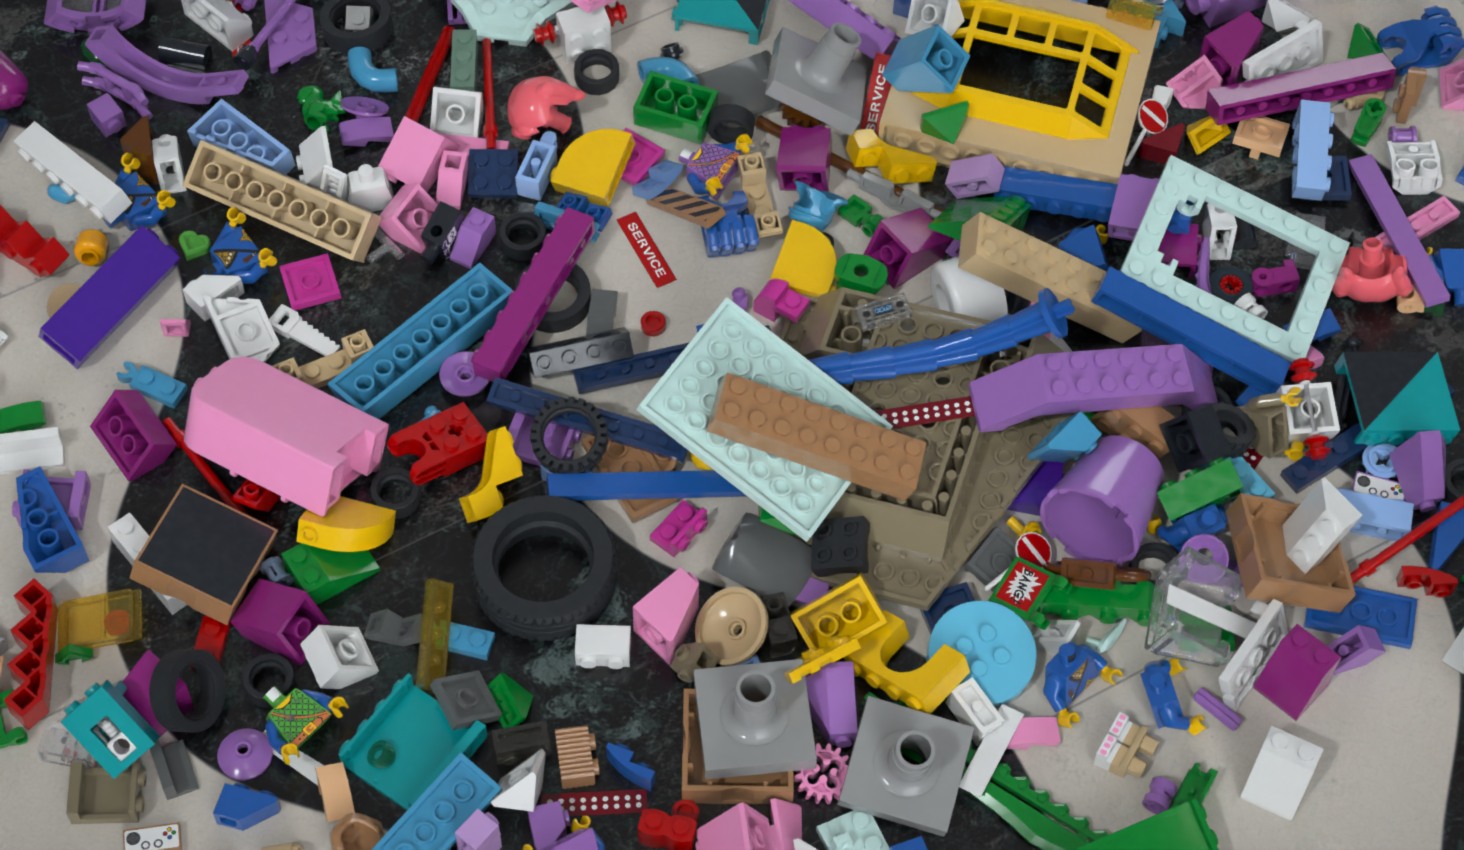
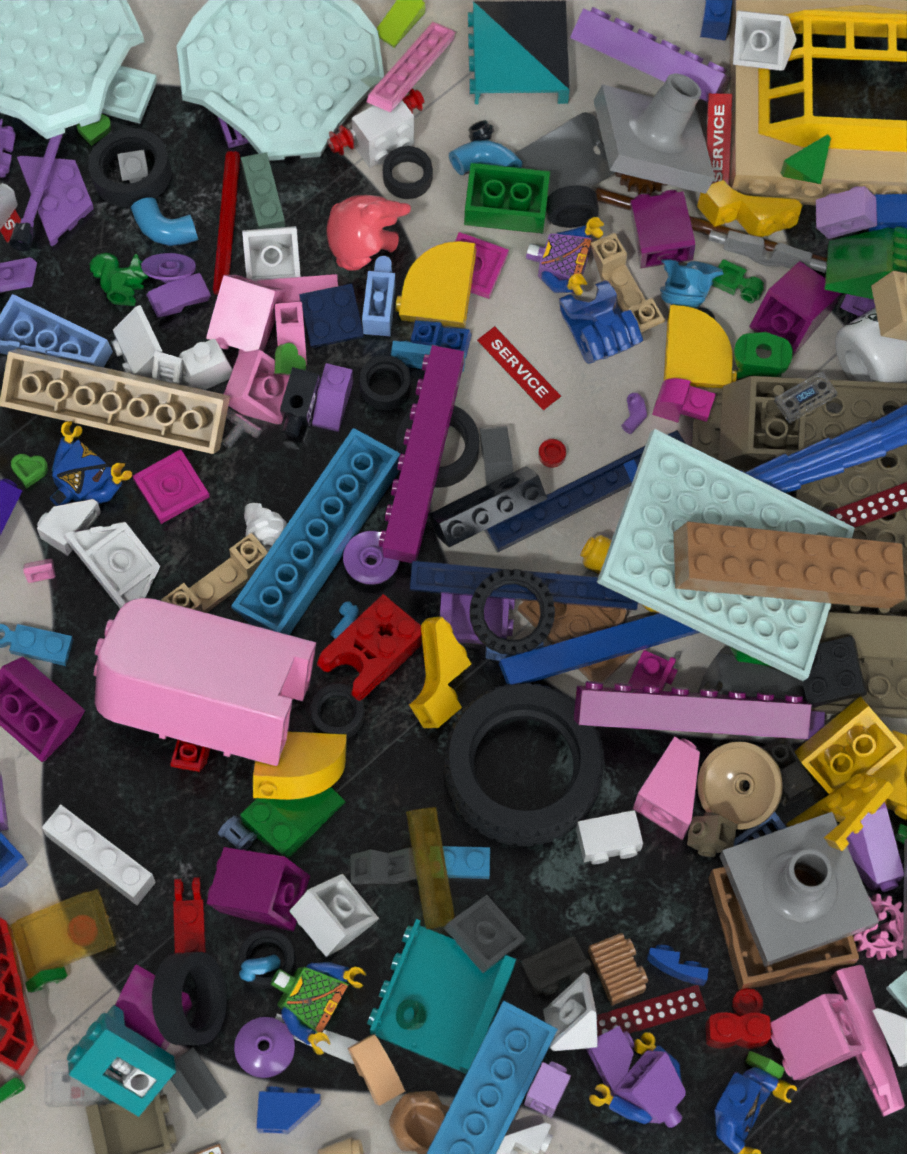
camera: 15 degrees left, 10 degrees up
(200, 463) = (87, 702): red bar -> none
(203, 554) = (158, 836): black tile -> none
(259, 680) = (258, 966): none -> dark azure arm
(301, 331) = (179, 546): white piece -> none
(378, 325) = (263, 524): none -> white head
(443, 193) = (286, 358): none -> bright green tile
(490, 129) = (313, 264): red bar -> none
(511, 700) = (531, 920): green slope -> none
(661, 177) = (513, 283): medium blue slope -> none
(687, 207) = (552, 313): medium nougat tile -> none
(701, 549) = (692, 711): none -> brick
(926, 62) = (772, 98): dark azure slope -> none

